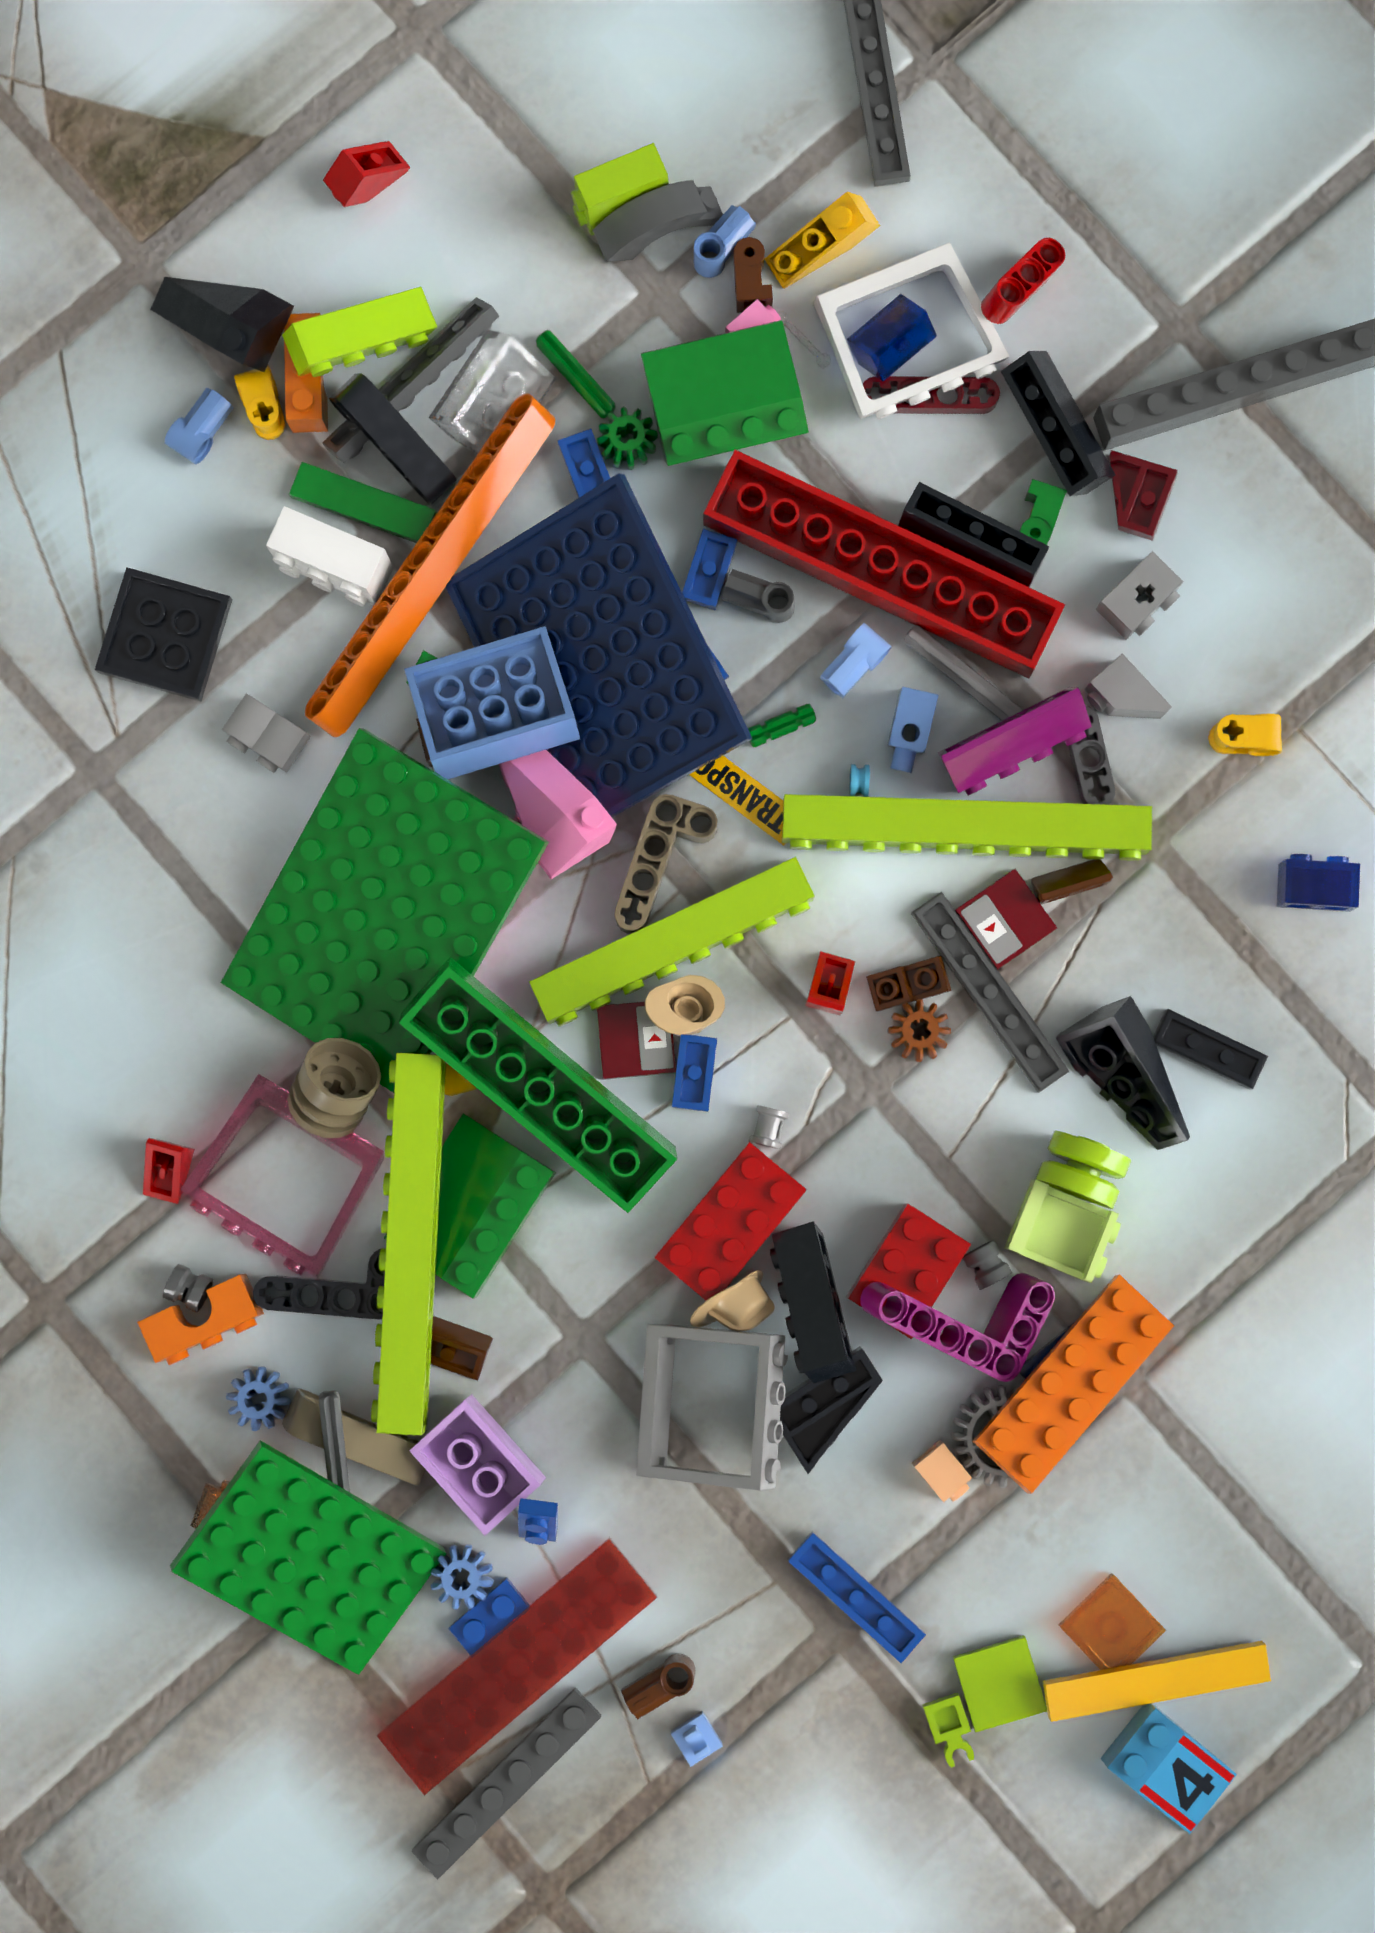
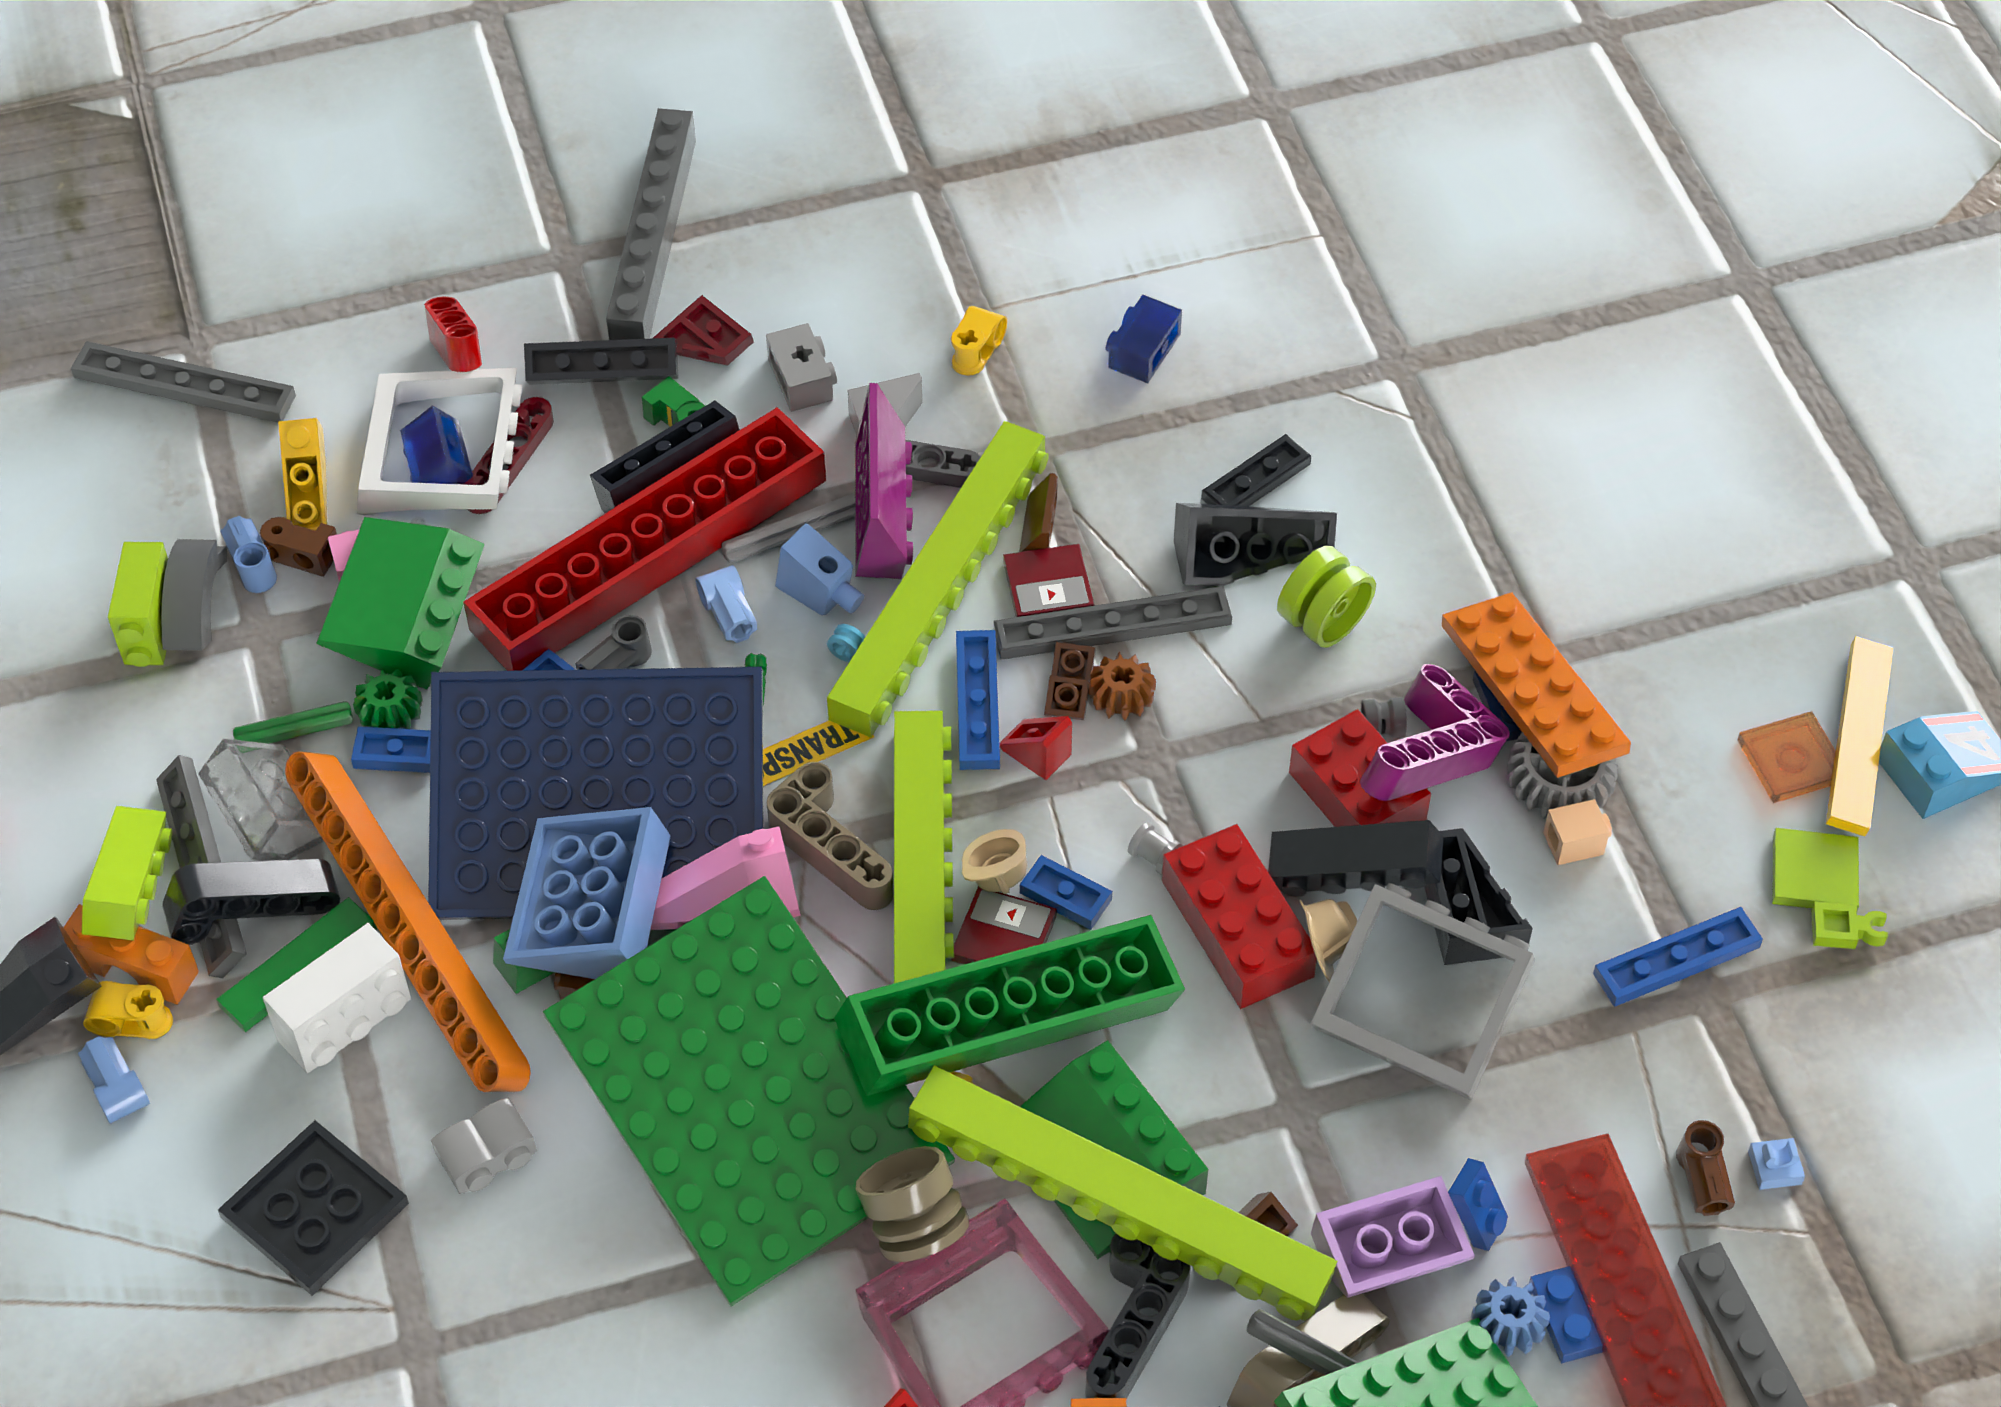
camera: 70 degrees left, 30 degrees down
(852, 915) = (977, 700): none -> blue plate
(1063, 1232) = (1379, 648): yellowish green panel -> none

